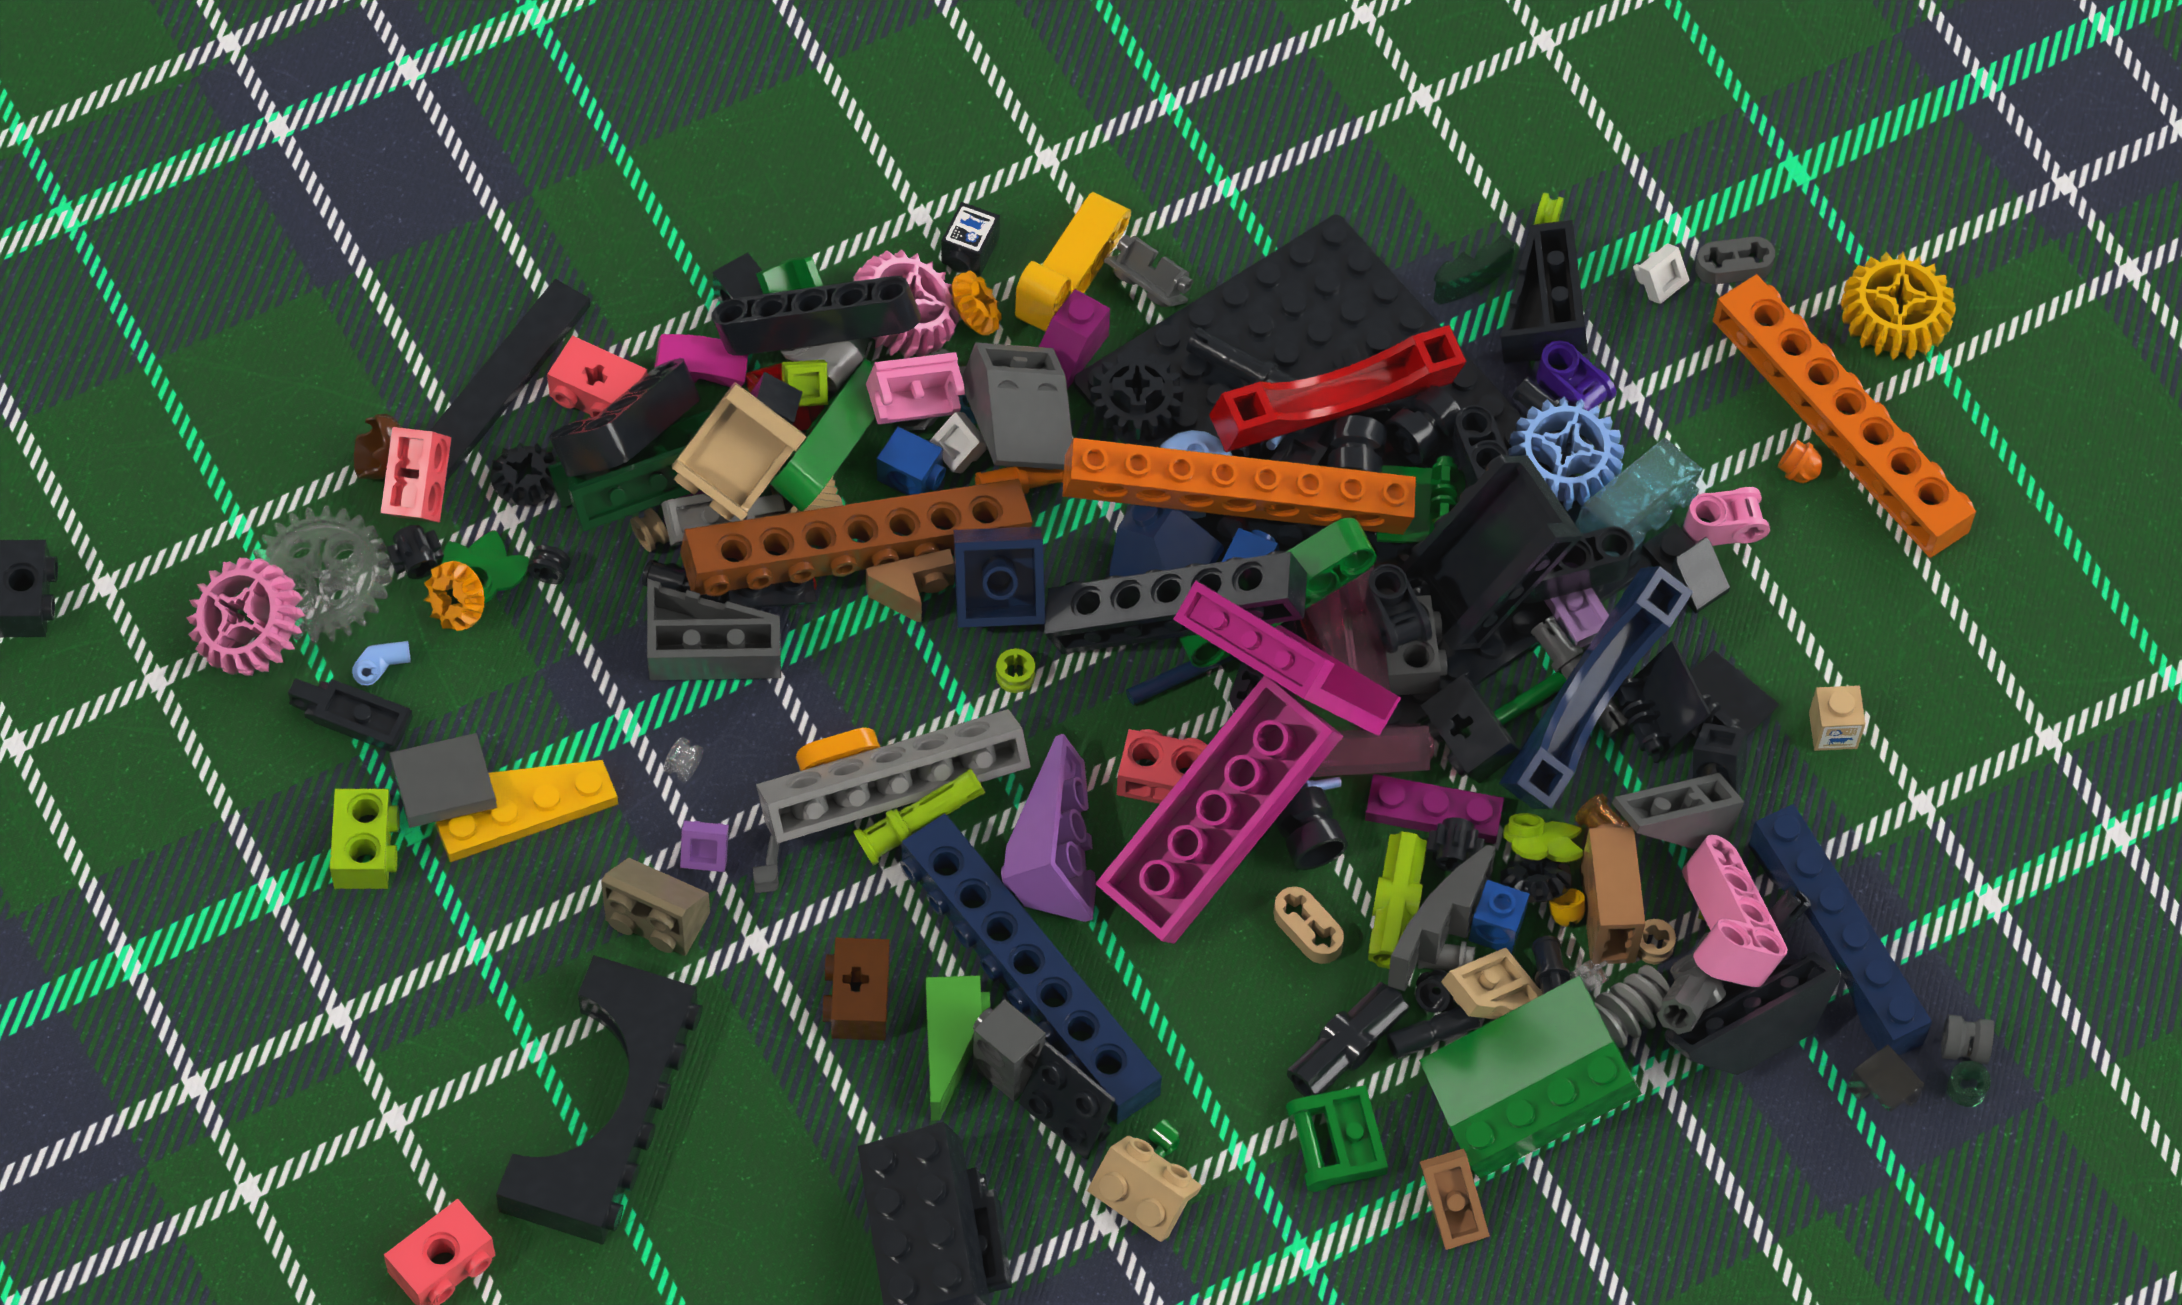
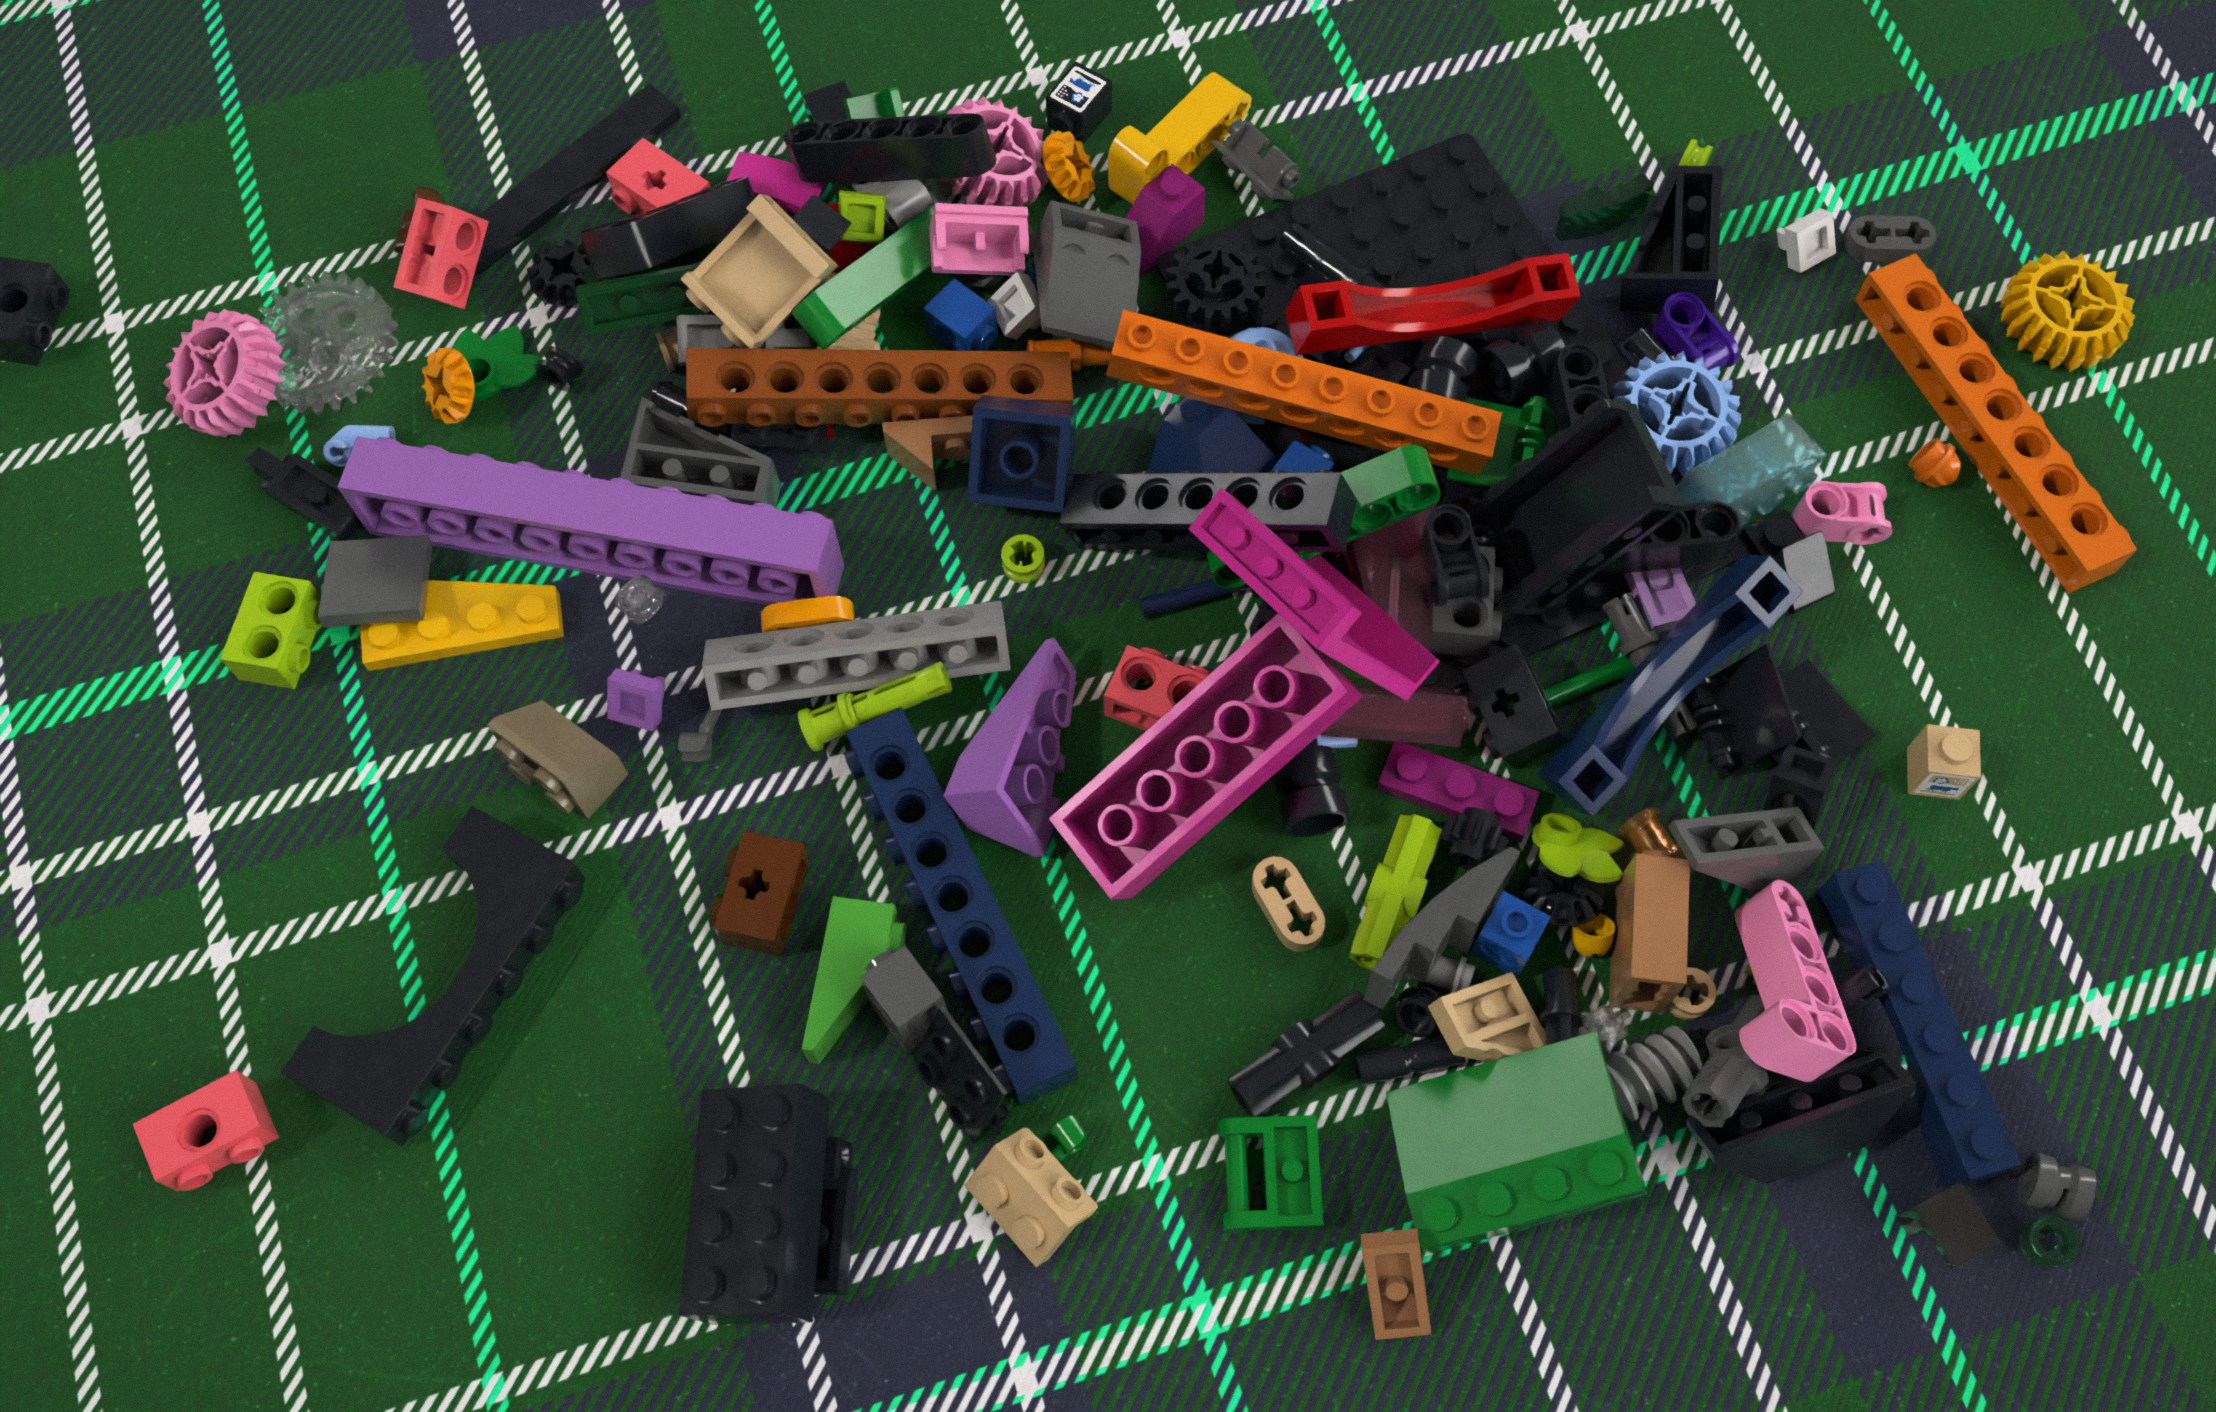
camera: 15 degrees right, 5 degrees up
(415, 551) = (422, 332): black gear -> none
(628, 699) = (592, 523): none -> medium lavender brick

